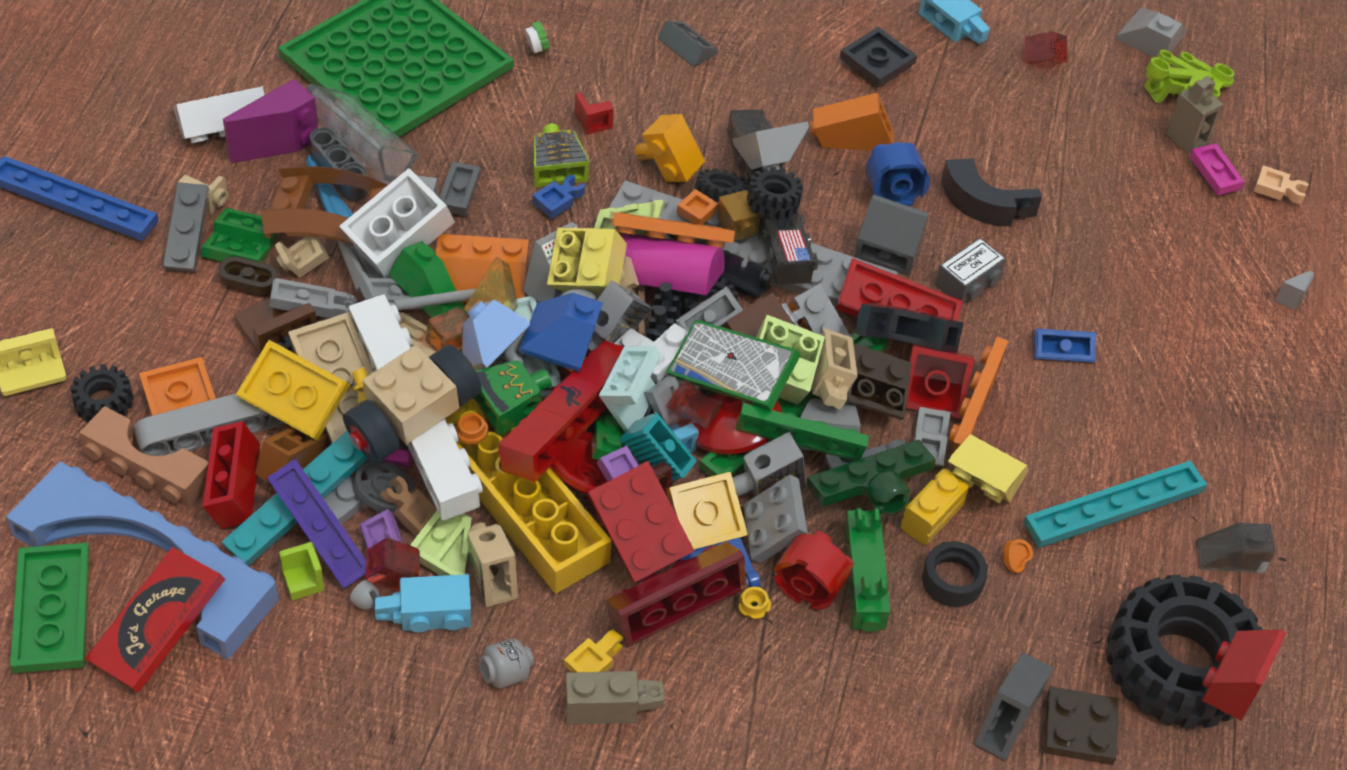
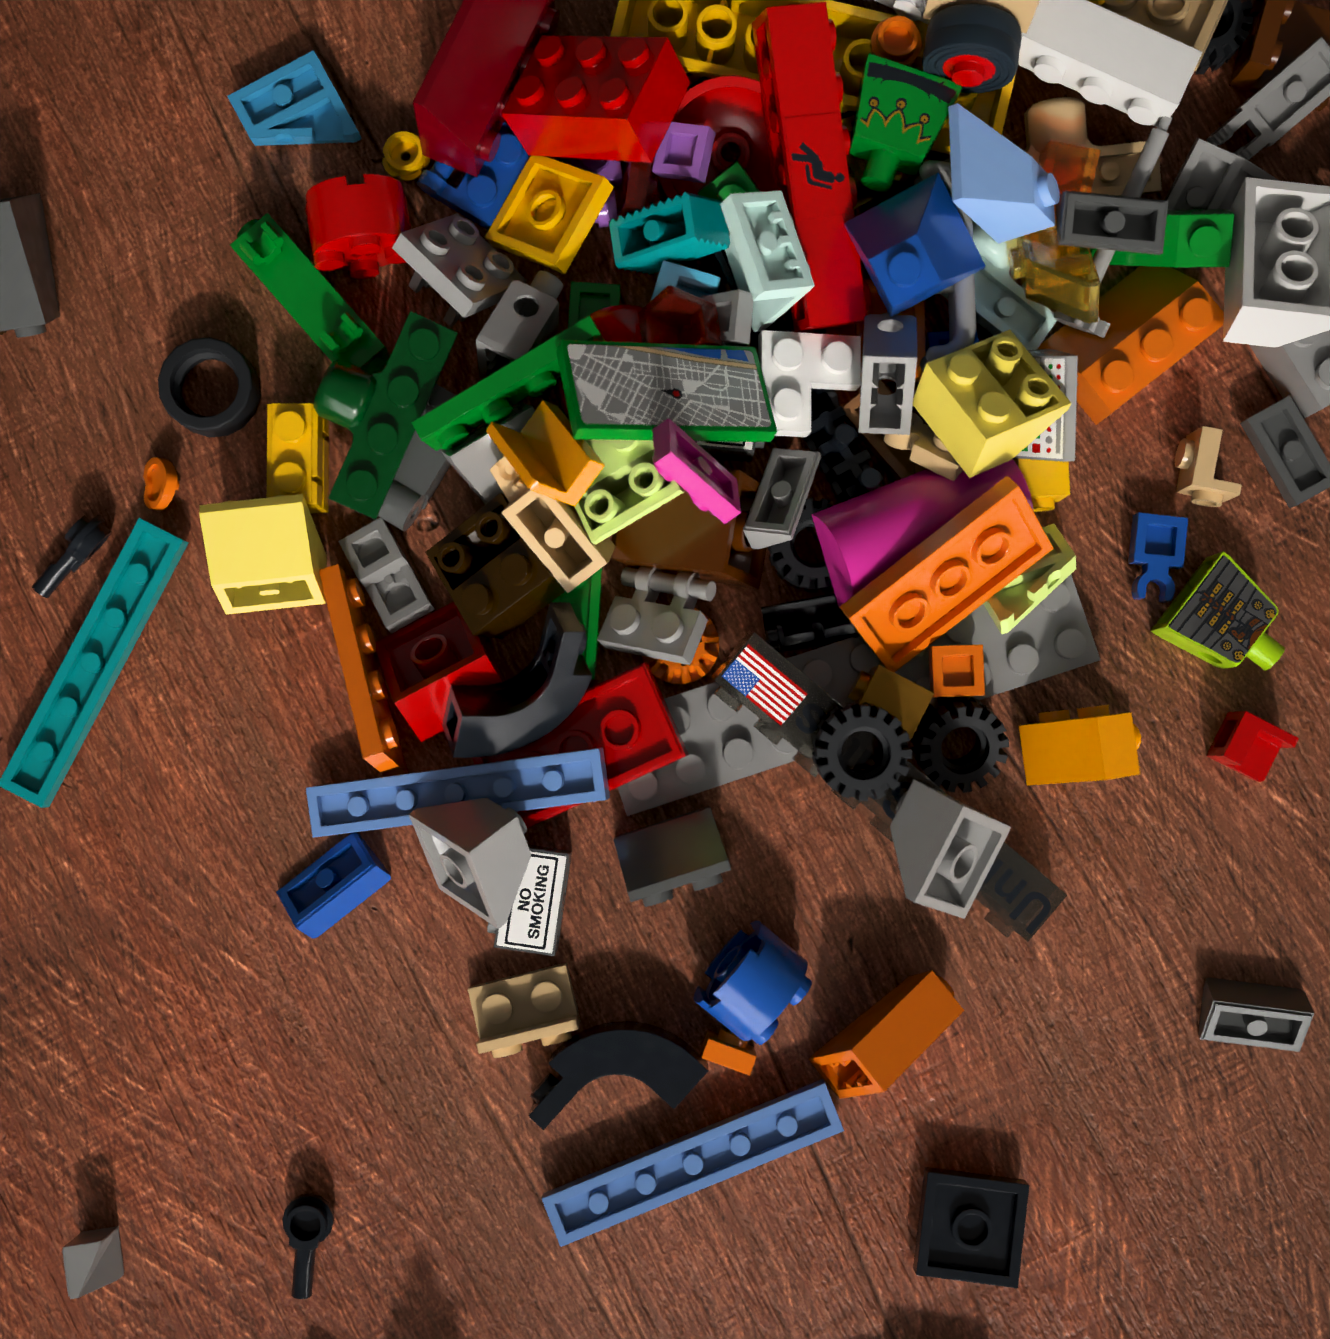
camera: 145 degrees right, 35 degrees up
(457, 285) = (1111, 222): none -> dark grey slope
(504, 209) = (1197, 464): none -> tan bracket
(754, 314) = (696, 471): none -> dark pink plate
(794, 668) = (294, 107): none -> dark azure wing
(815, 379) = (548, 455): none -> light orange panel
(933, 166) = (728, 1051): none -> orange plate
(977, 324) = (512, 784): none -> medium blue plate
(980, 147) = (691, 1162): none -> medium blue plate
(984, 288) = (475, 854): none -> light grey slope
(1013, 239) = (524, 1010): none -> tan bracket
(1078, 555) = (85, 540): none -> black plate
(1179, 237) = (306, 1223): none -> black plate

